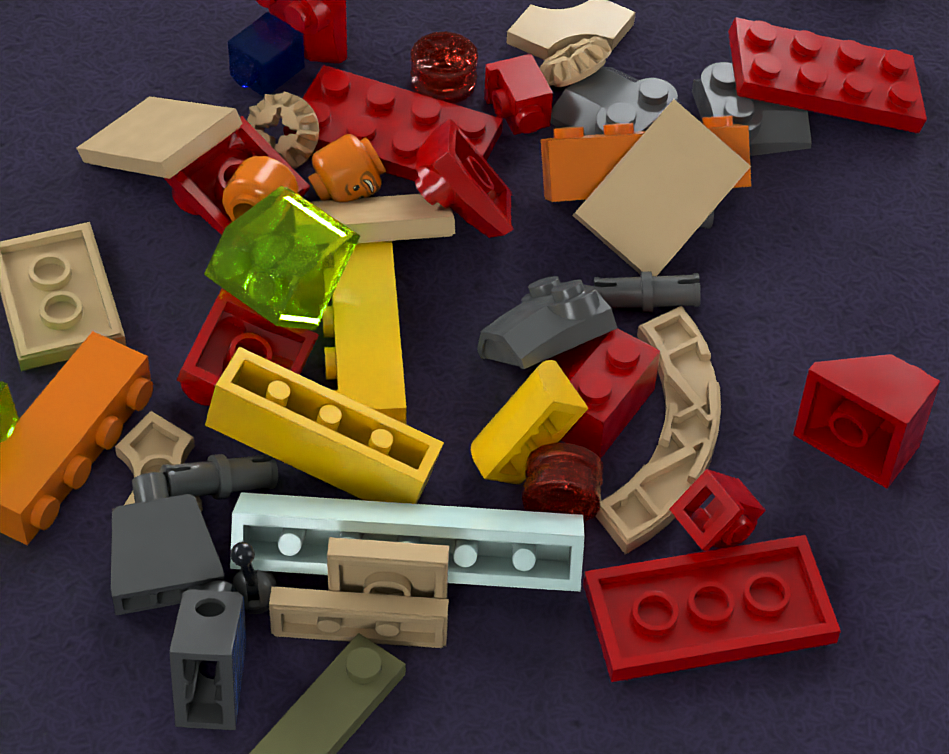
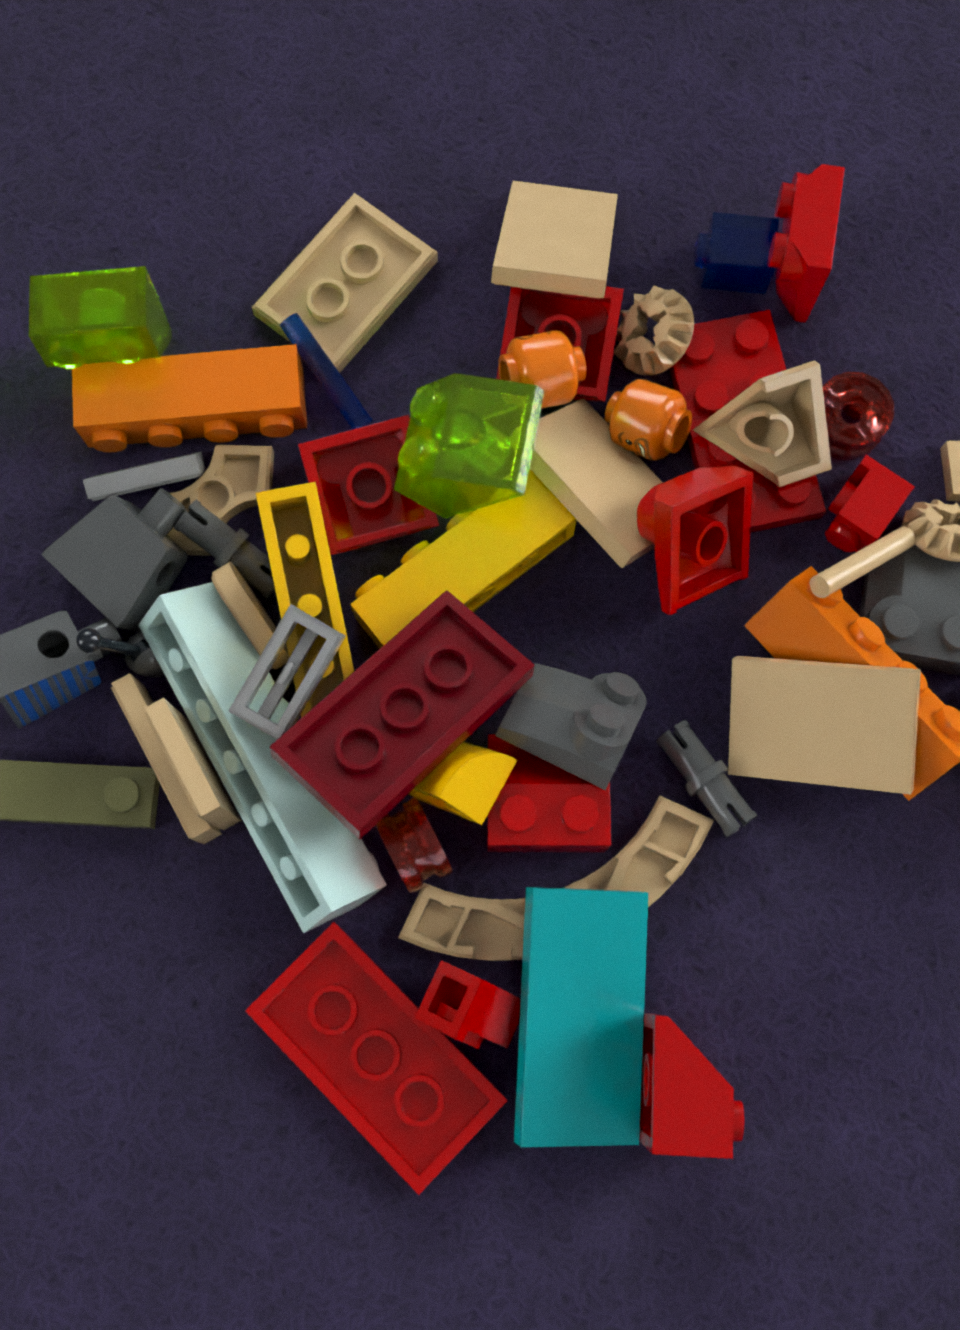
camera: 60 degrees right, 25 degrees up
(100, 503) = (144, 476): none -> light grey tile
(137, 340) = (325, 372): none -> clear blue piece
(280, 478) = (246, 609): none -> tan tile
(351, 459) = (265, 662): none -> light grey tile
(422, 94) = (776, 426): none -> tan slope
(466, 401) = (401, 713): none -> dark red plate
(564, 104) = (862, 562): none -> tan piece
(773, 452) = (581, 1018): none -> teal tile

